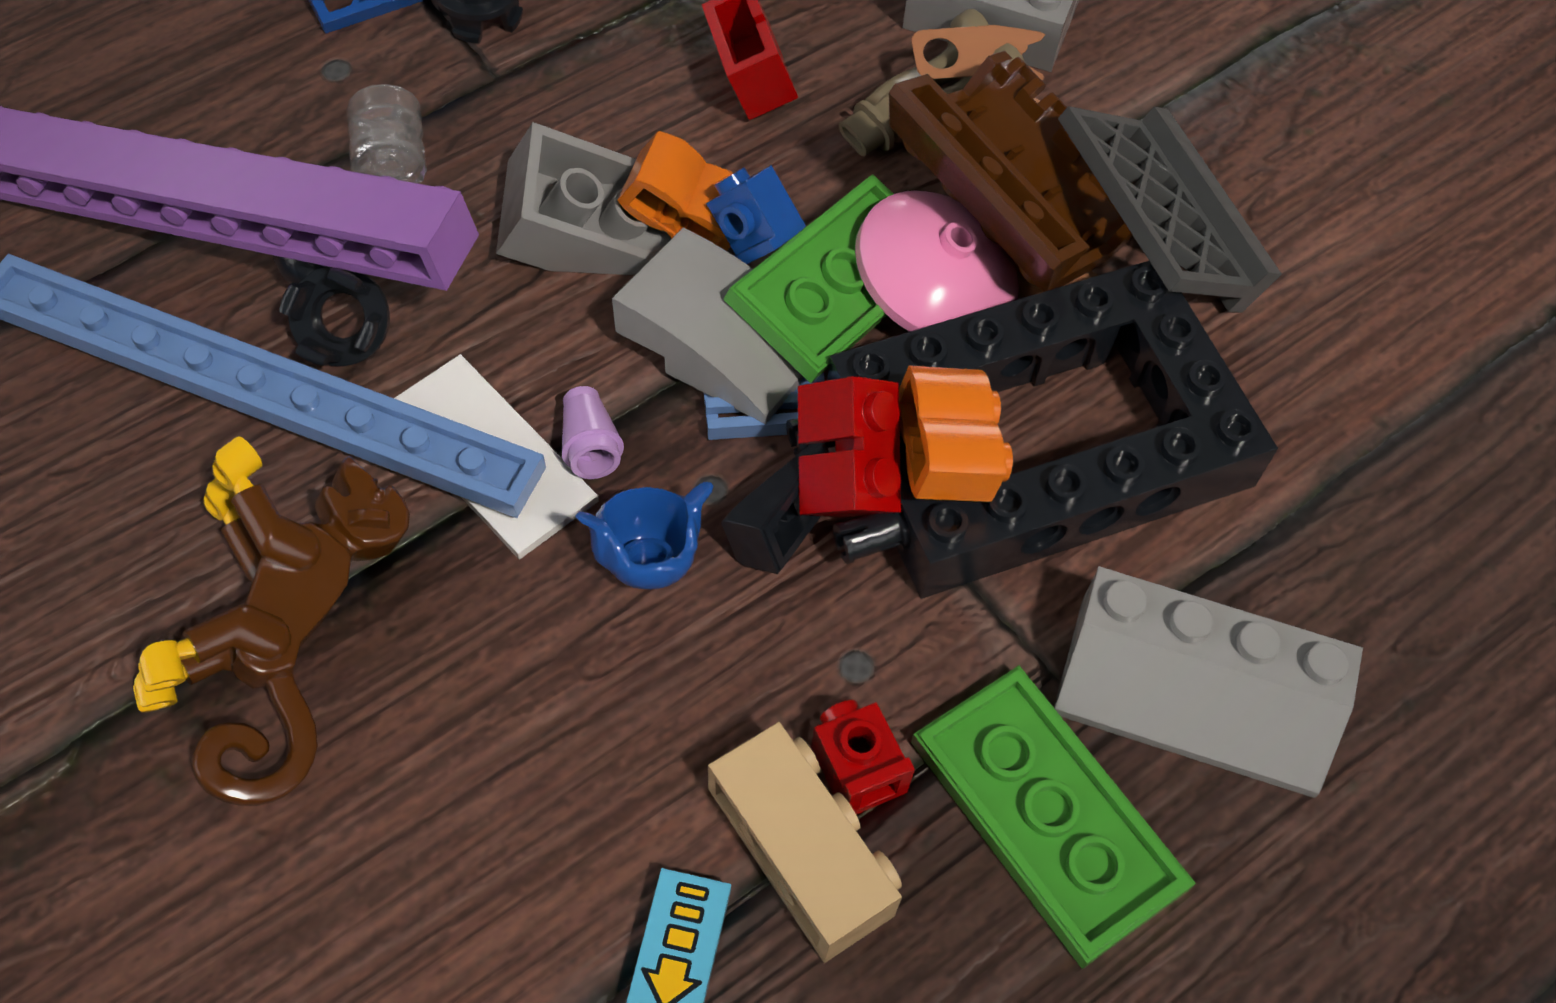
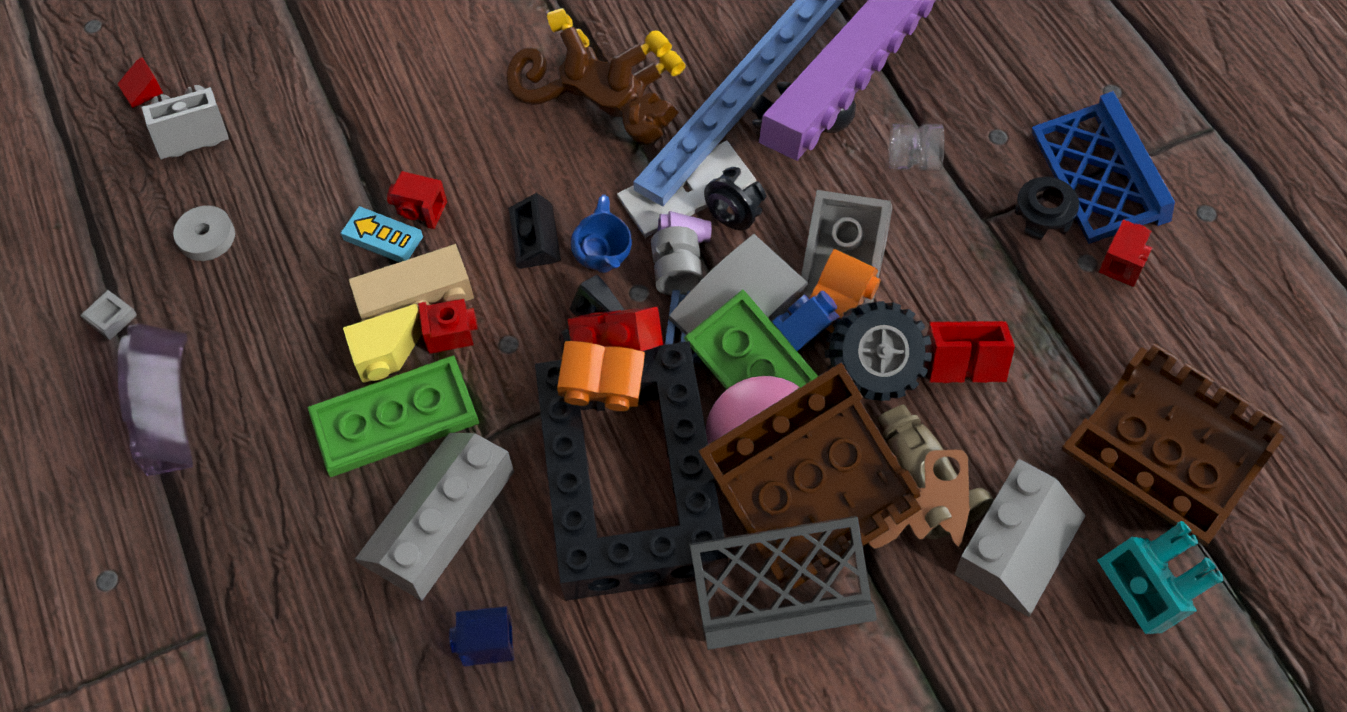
camera: 110 degrees right, 0 degrees up
(535, 359) = (723, 192): none -> black piece
(592, 890) = (418, 198): none -> red brick
(624, 675) = (534, 232): none -> black slope
(683, 415) = (676, 259): none -> light grey wheel
(788, 122) = (880, 349): none -> black wheel
(937, 854) = (383, 342): none -> light yellow slope
(1370, 558) = (483, 636): none -> clear blue brick

